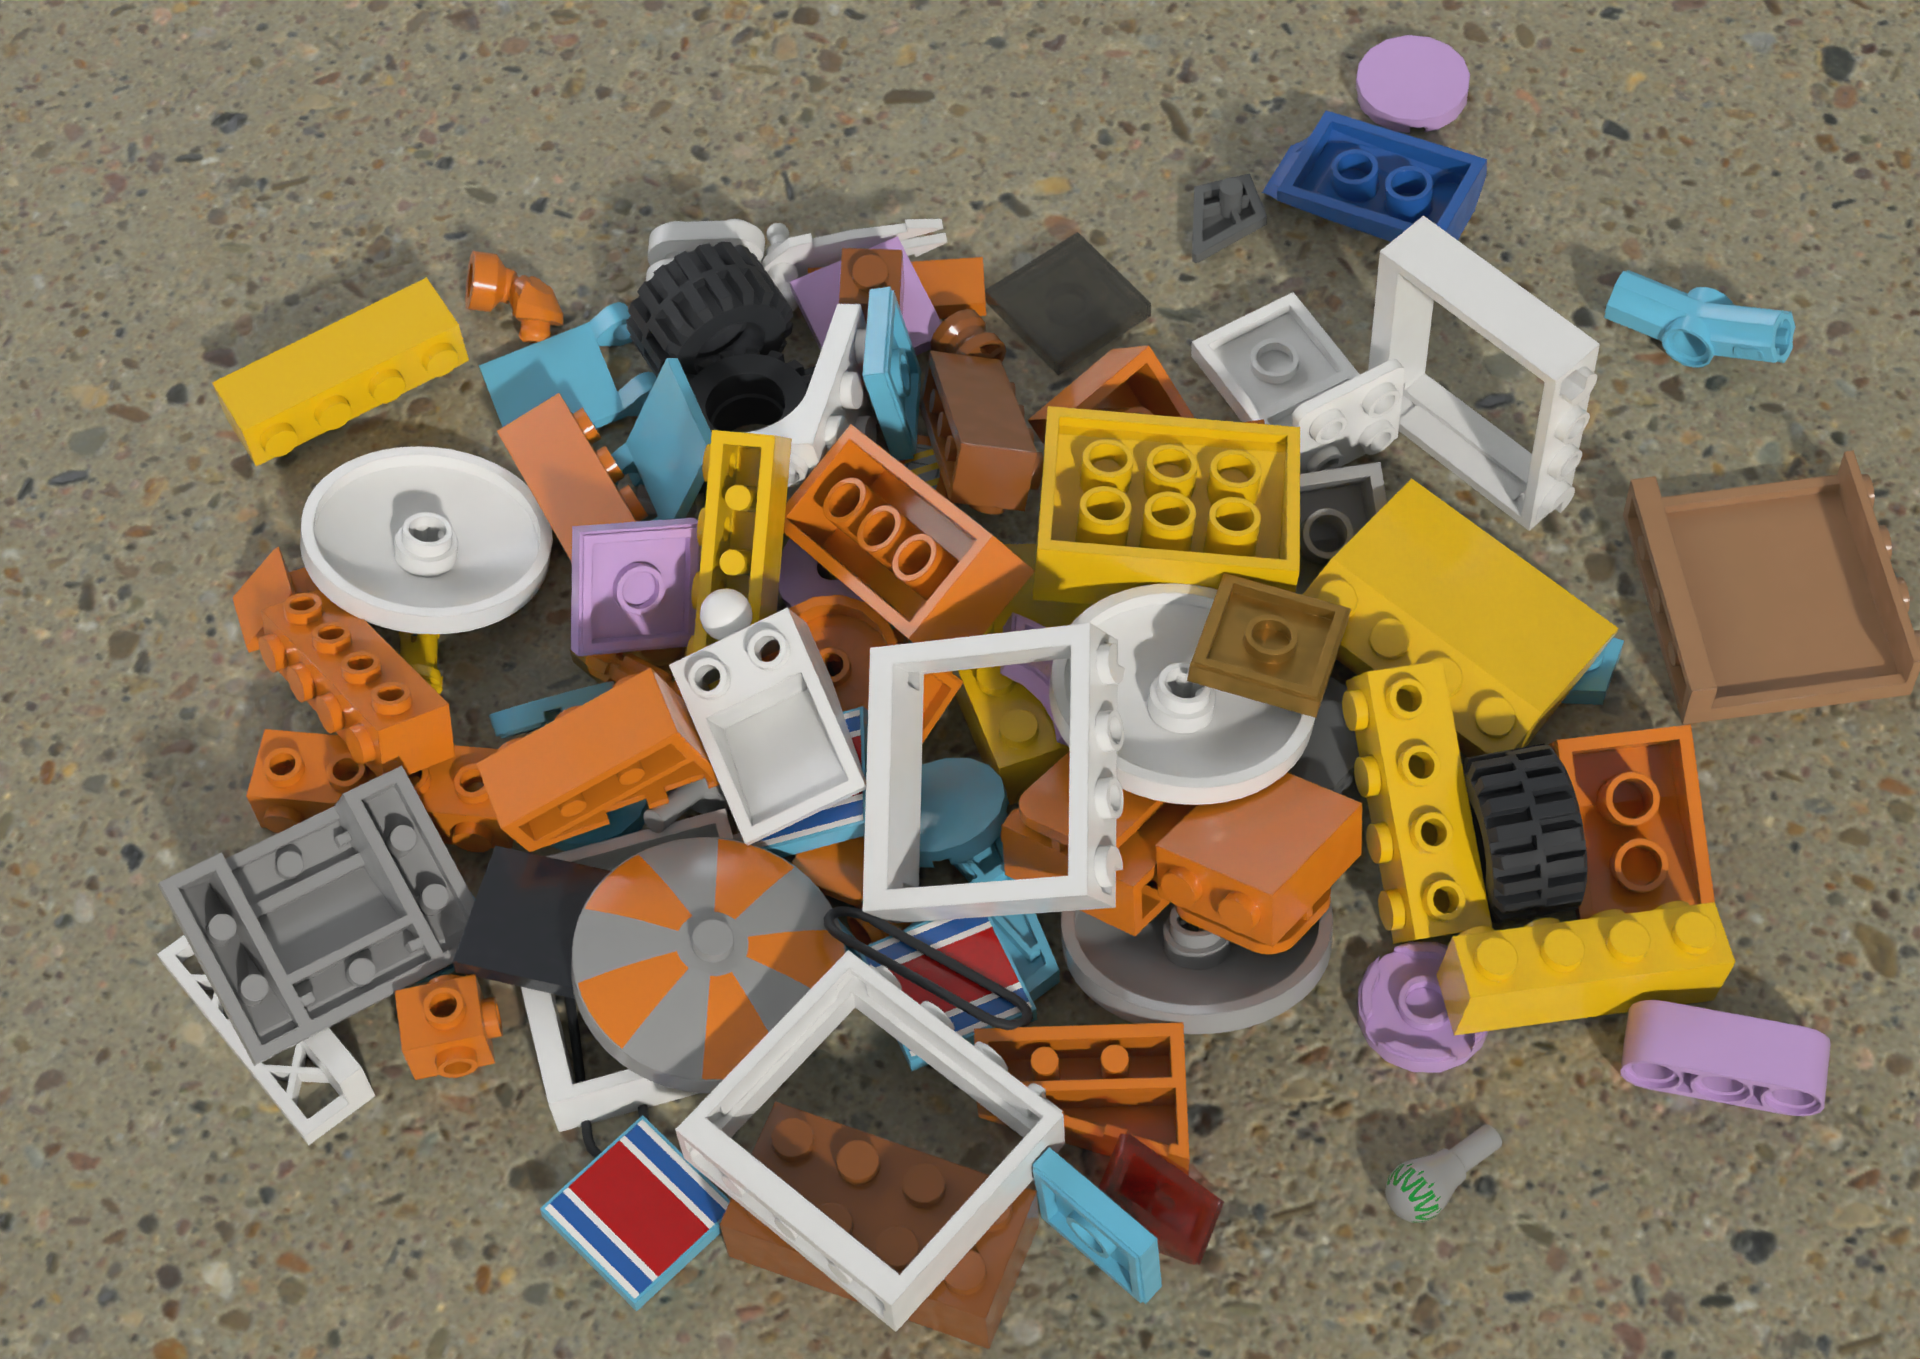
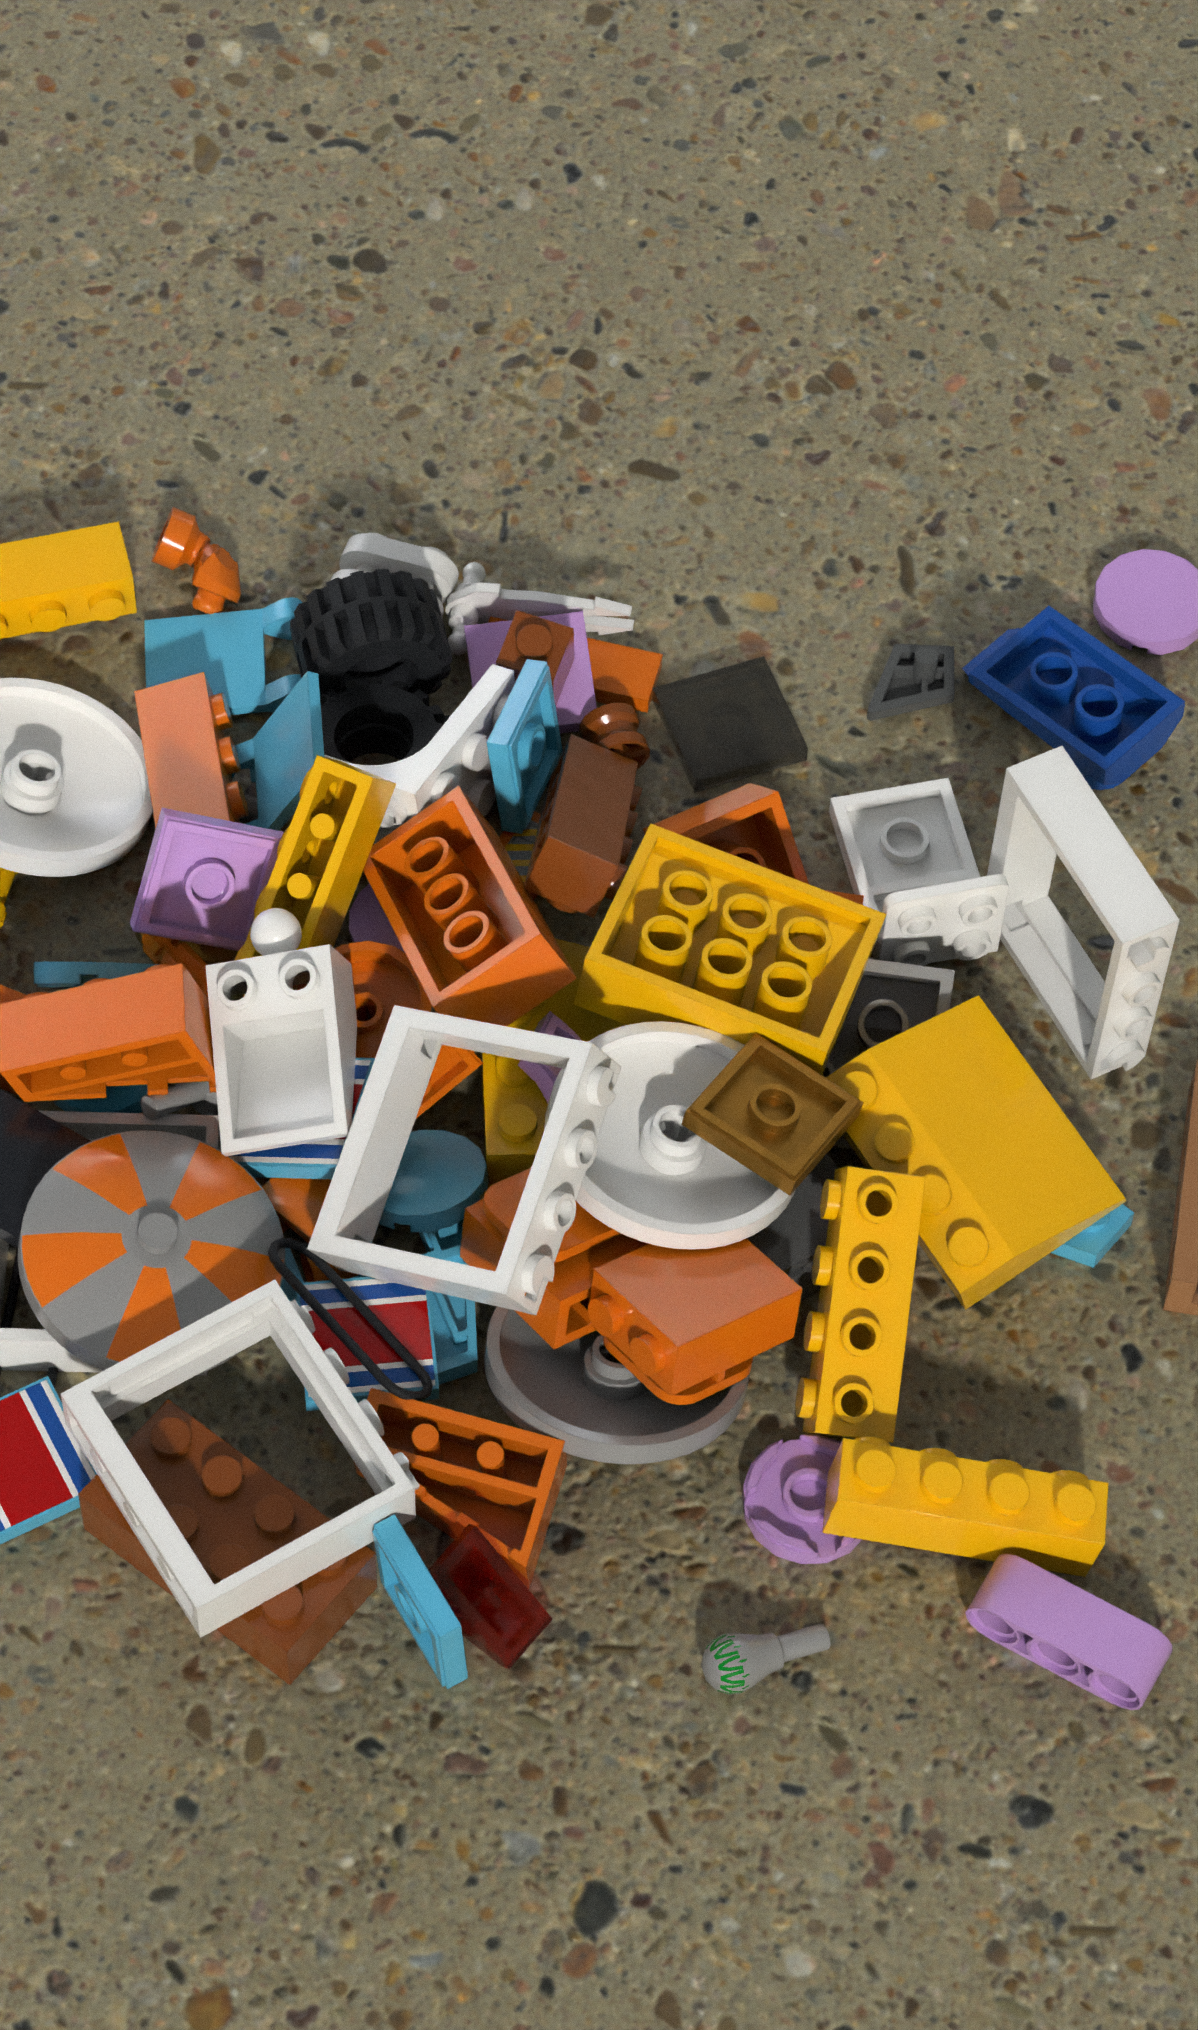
camera: 10 degrees right, 0 degrees up
(1526, 832) = (951, 1363): black tyre -> none
(1639, 819) = (1068, 1385): orange slope -> none

